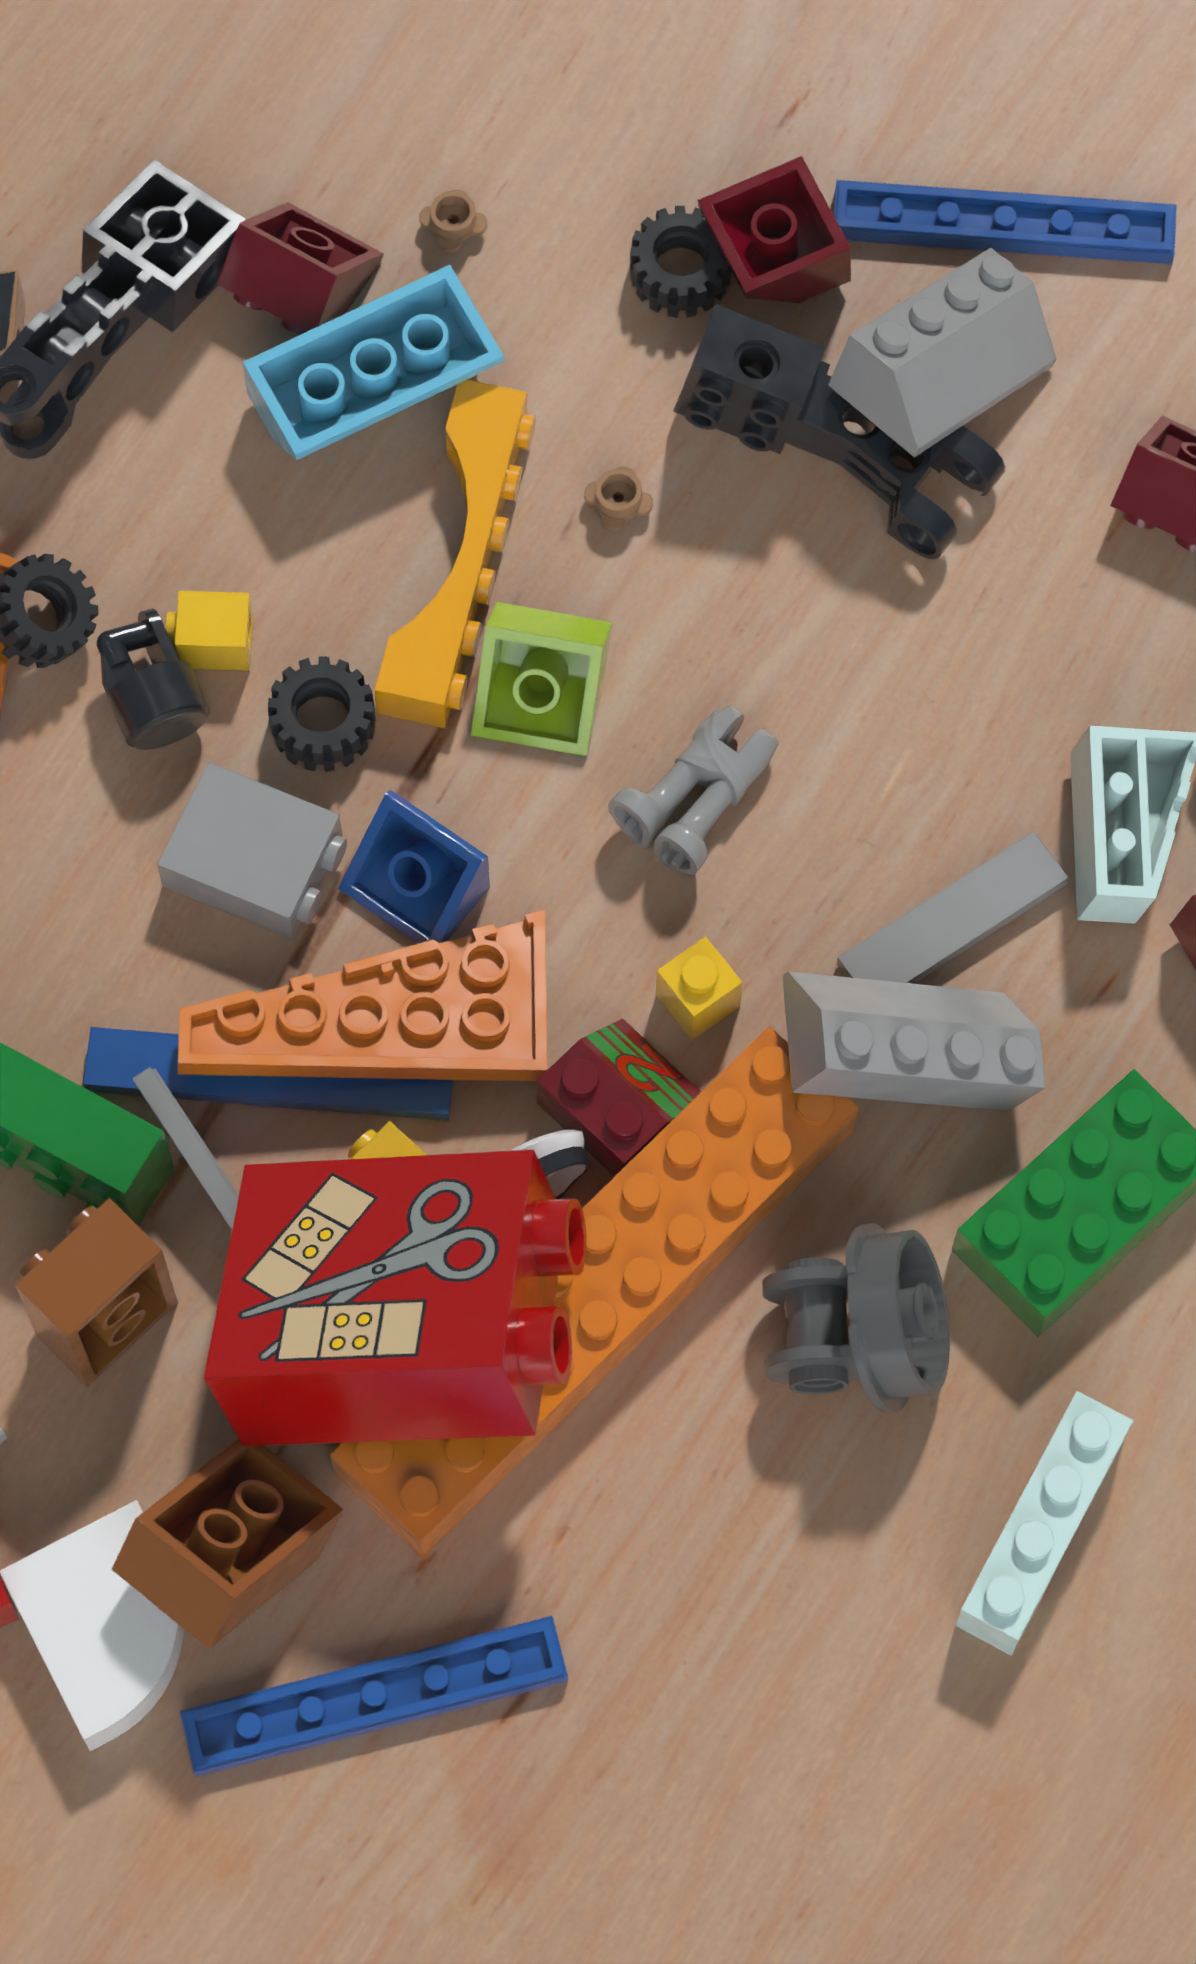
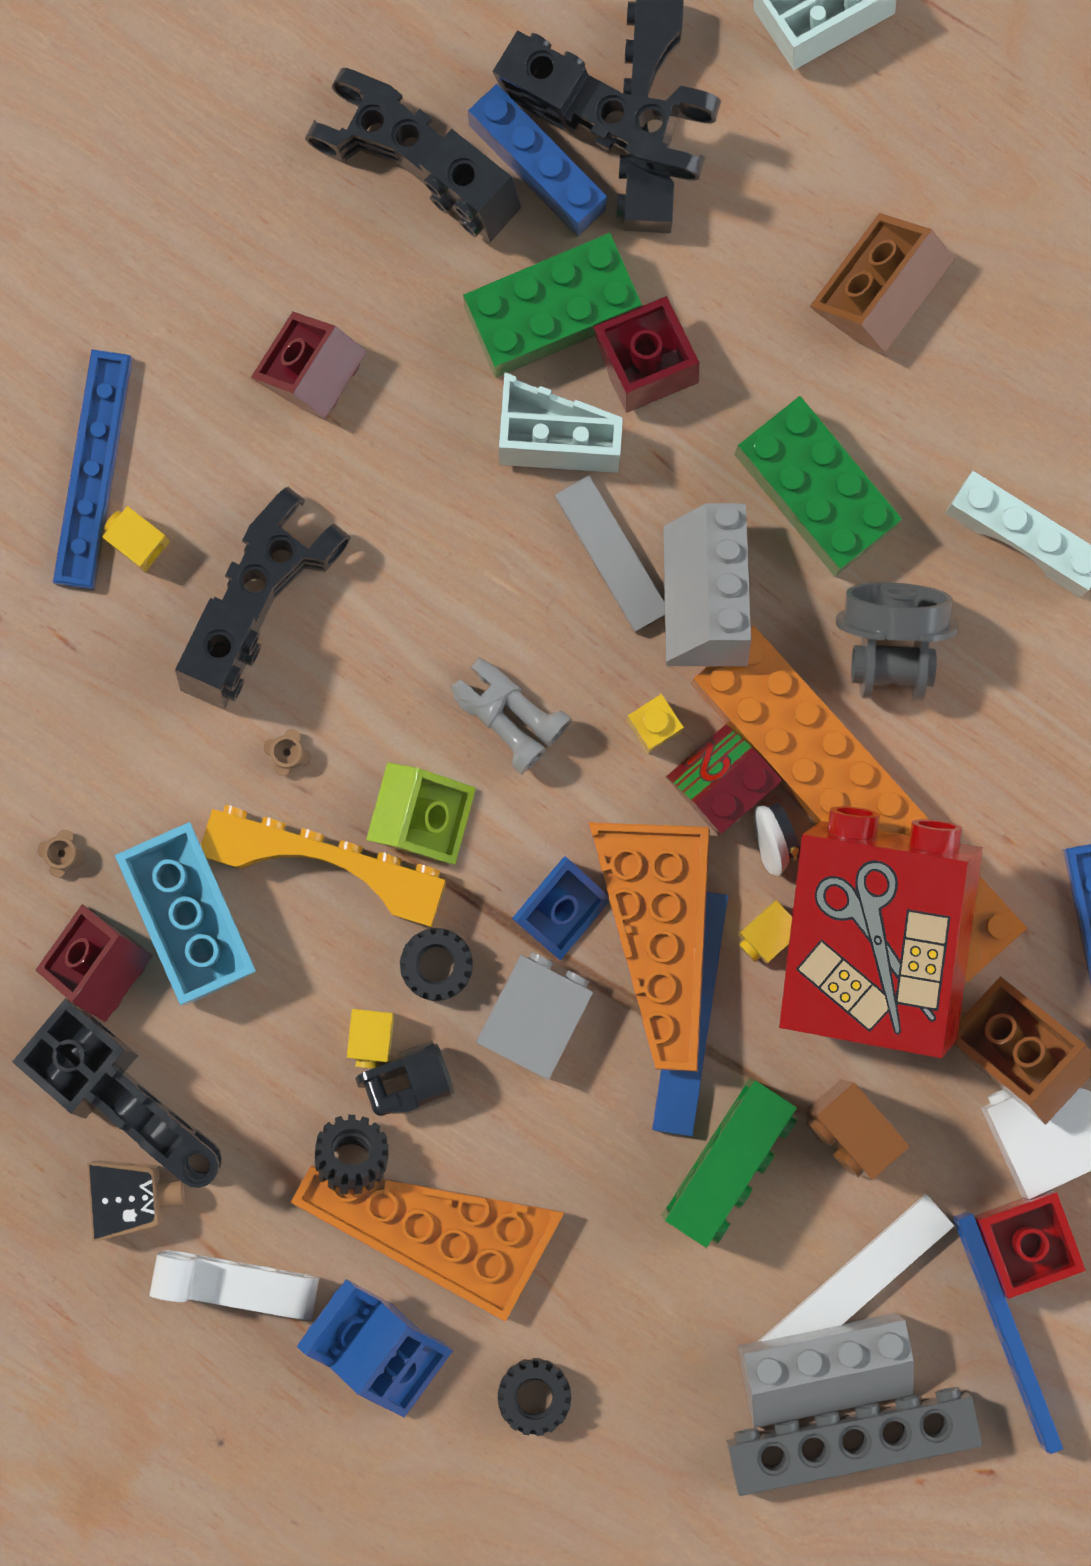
camera: 85 degrees left, 15 degrees up
(188, 1142) = (748, 1063): light grey tile -> none
(671, 290) = (88, 681): black tyre -> none
(779, 235) = (102, 626): dark red slope -> none
(905, 269) = (135, 538): none -> yellow brick
(946, 353) = (211, 515): light grey slope -> none

